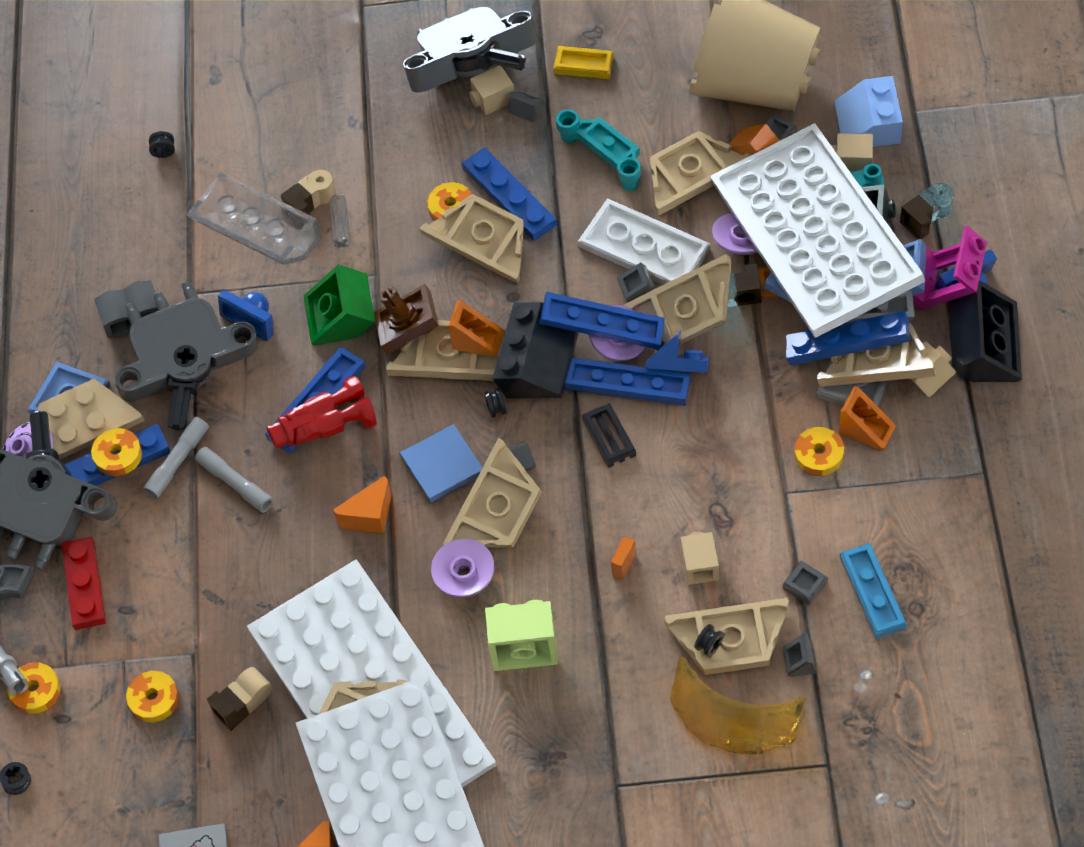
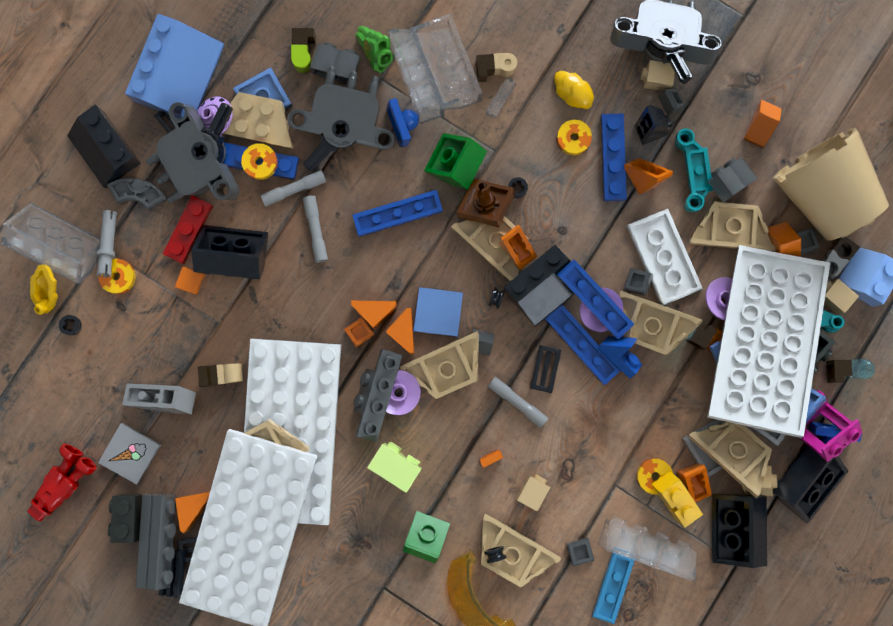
camera: 30 degrees right, 25 degrees up
(83, 326) = (301, 48): none -> leg
(126, 631) = (189, 280): none -> orange tile
(154, 567) = (230, 252): none -> black slope
(155, 709) = (186, 335): yellow piece -> none
(162, 261) = (376, 48): none -> bright green rock
(187, 770) = (159, 398): none -> light grey slope
(227, 259) = (414, 75): none -> clear slope
(319, 417) = (387, 232): red piece -> none
(368, 545) = (359, 332): none -> orange tile
(413, 162) = (573, 90): none -> yellow arm
(418, 507) = (402, 331): none -> orange slope
(435, 283) = (524, 185): none -> black bush
(437, 584) = (375, 394): none -> dark grey bracket
(482, 235) = (574, 176): tan wing -> none
(522, 131) = (652, 125): none -> black slope
(560, 182) = (646, 175): none -> orange slope
(583, 62) = (730, 97): yellow tile -> none
(585, 486) = (528, 410): none -> light grey piece
(620, 695) = (426, 537): none -> piece
(639, 63) = (763, 124): none -> orange slope
(649, 124) = (731, 179): none -> dark grey brick
(800, 656) = (539, 595): dark grey slope -> none
(822, 114) = (839, 255): none -> leg
(848, 436) = (676, 495): none -> yellow piece
(849, 338) = (742, 436): blue plate -> none
(873, 519) = (648, 548): none -> clear slope
(953, 432) = (739, 530): none -> black slope

